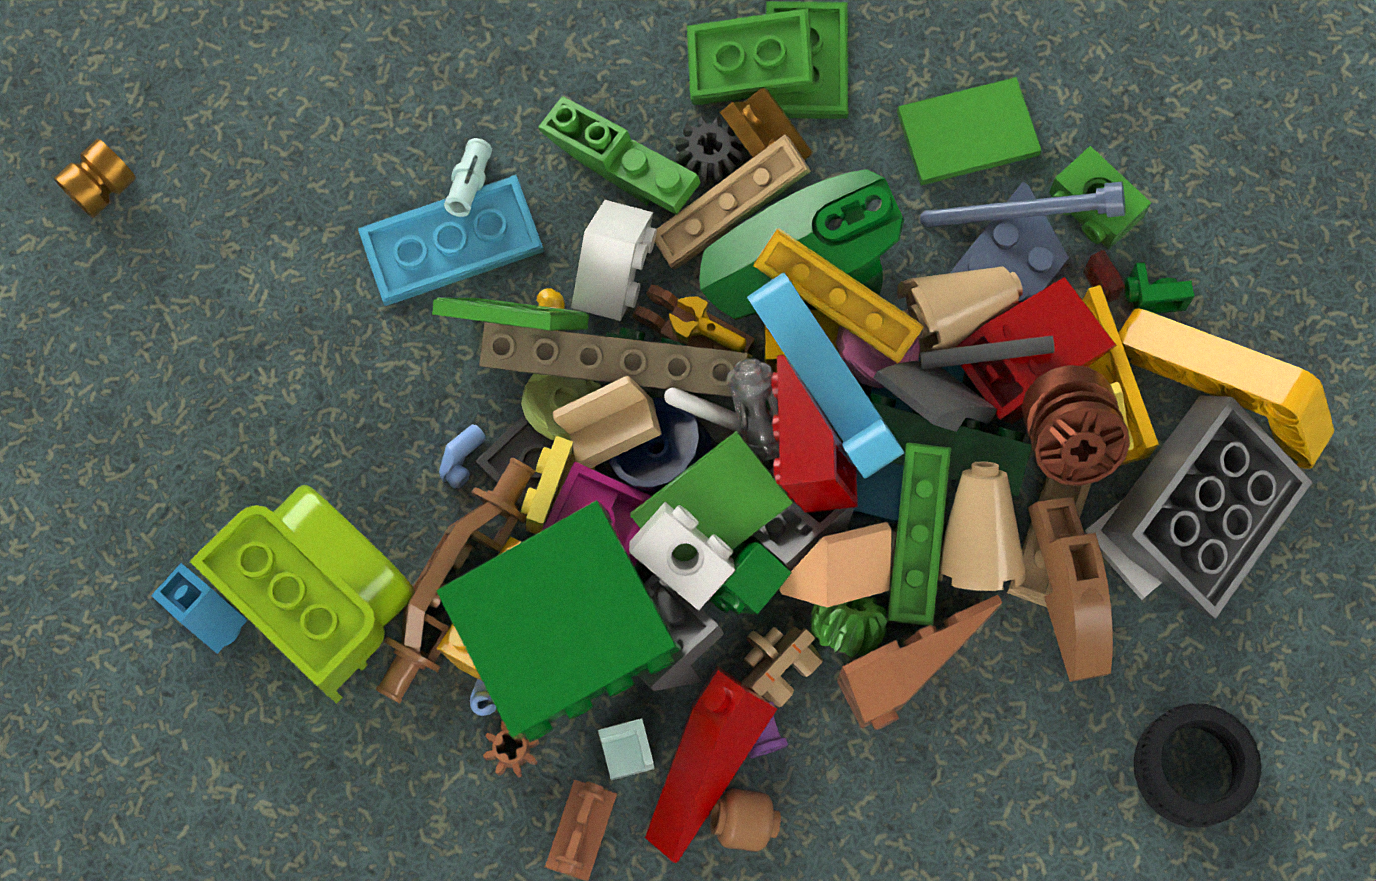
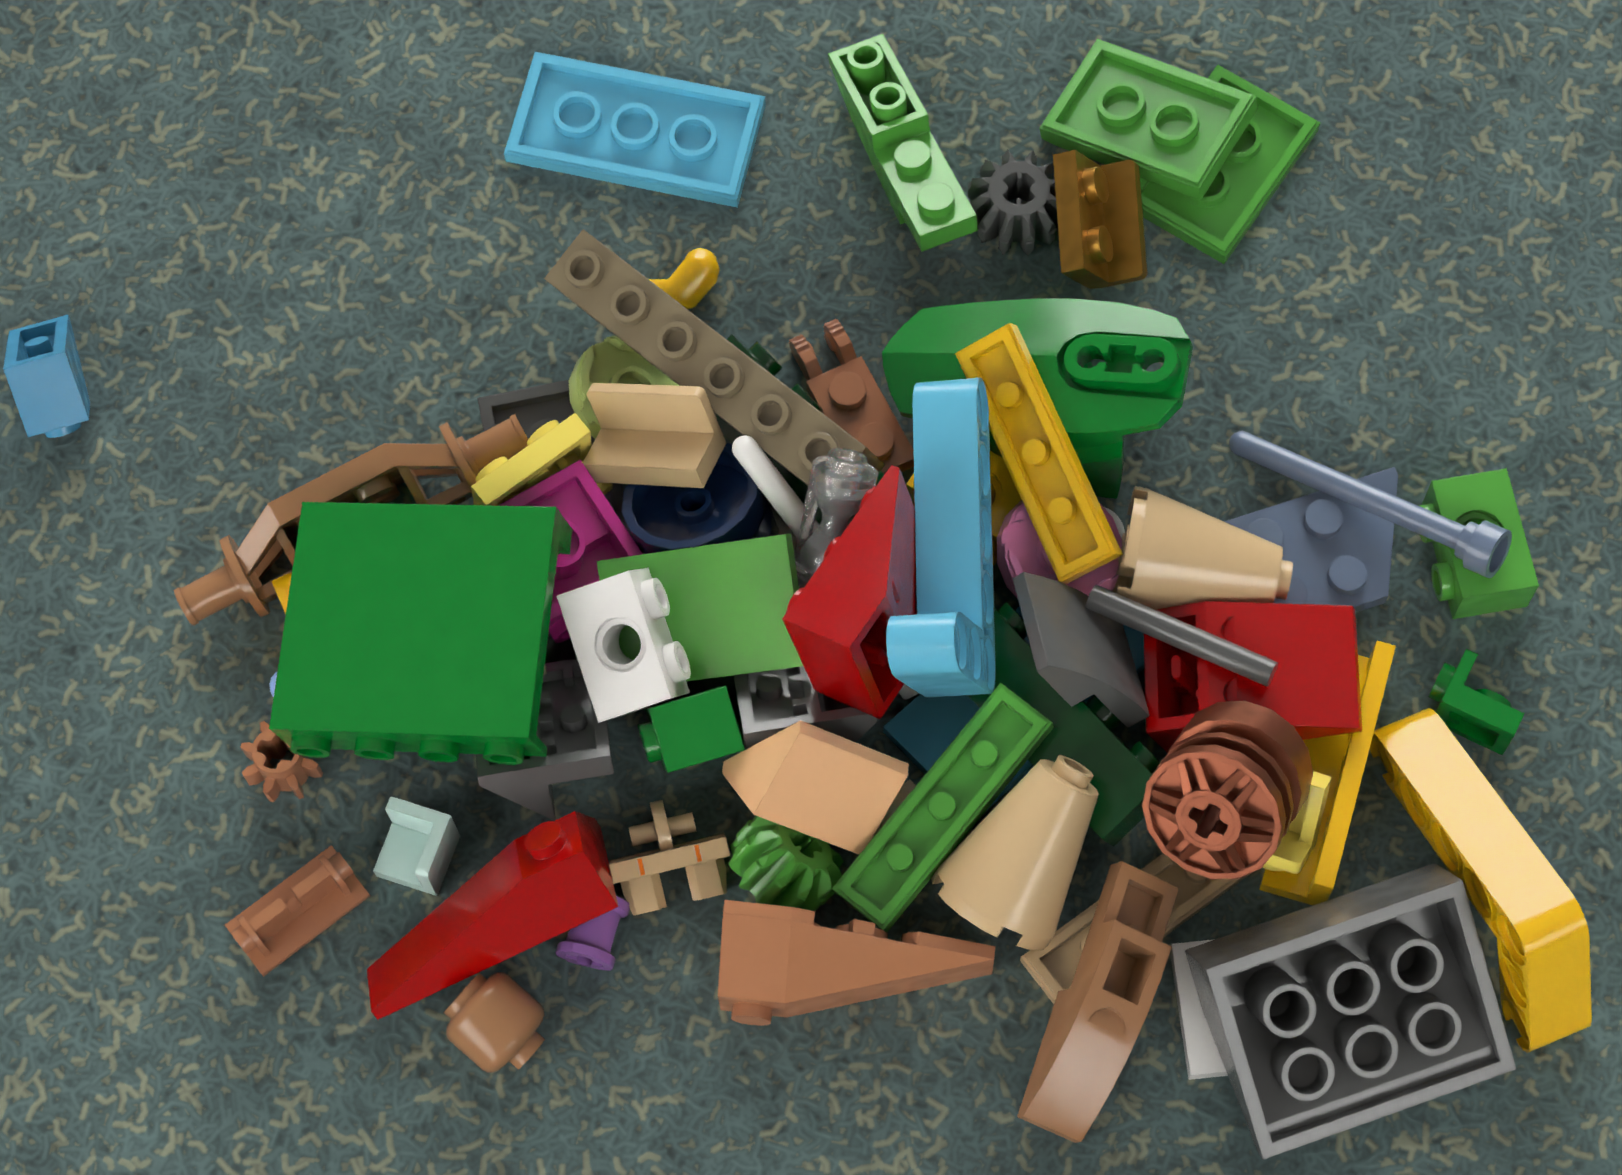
camera: 35 degrees right, 5 degrees down
(307, 584) = (169, 414): lime brick -> none
(455, 453) = (461, 379): light blue arm -> none
(462, 194) = (702, 64): light aqua pin -> none
(510, 313) = (631, 245): bright green tile -> none
(609, 257) = (799, 251): white brick -> none
(703, 325) = (860, 401): yellow bar -> none
(731, 202) = (998, 270): tan tile -> none
(968, 131) = (1369, 366): bright green tile -> none
(1102, 272) = (1416, 645): clear red tile -> none

